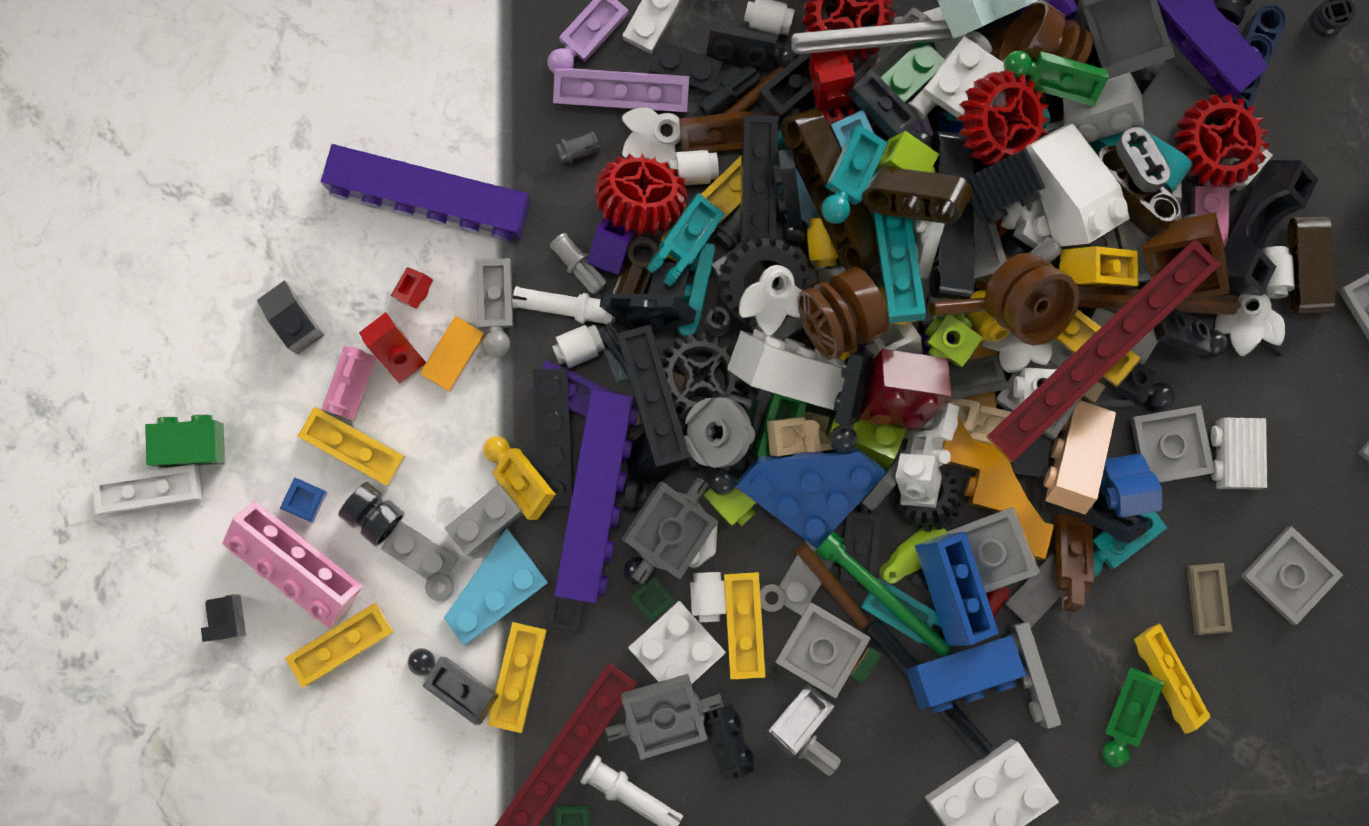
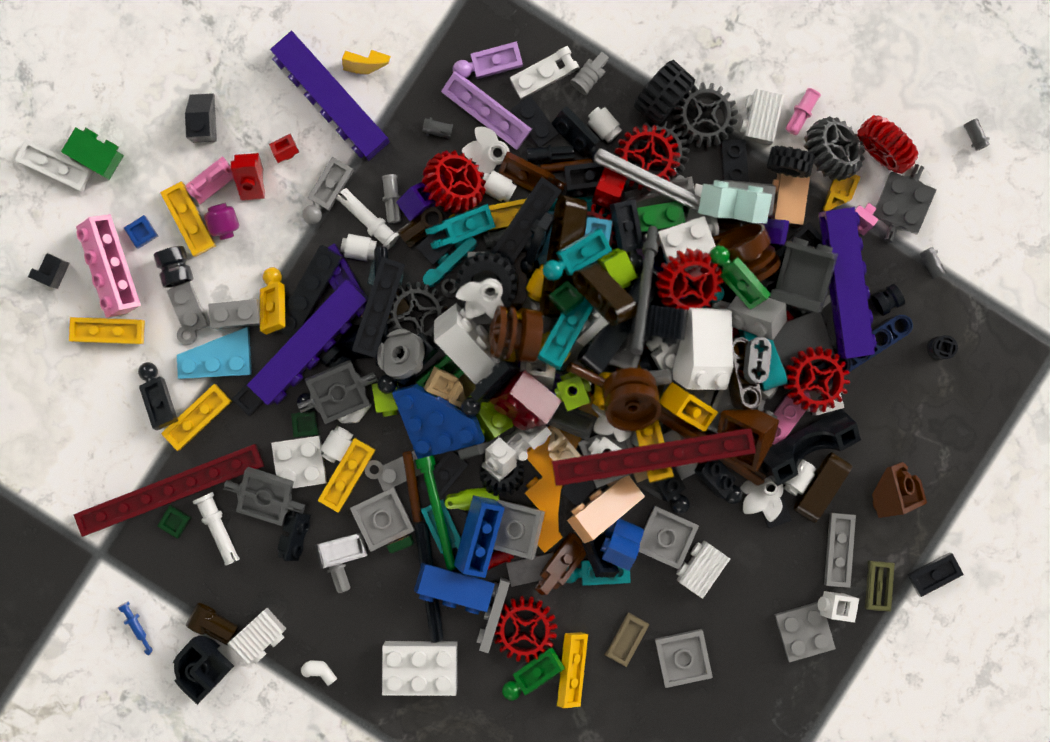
camera: 30 degrees right, 5 degrees up
(393, 422) = (221, 221): none -> magenta head
(441, 131) = (363, 65): none -> yellow slope
(452, 354) = (283, 203): light orange tile -> none
(640, 310) = (410, 255): black wing -> none
(873, 231) = (566, 298): none -> dark green tile
(932, 115) = (650, 250): none -> dark grey bar
(1111, 674) = (532, 637): none -> red gear

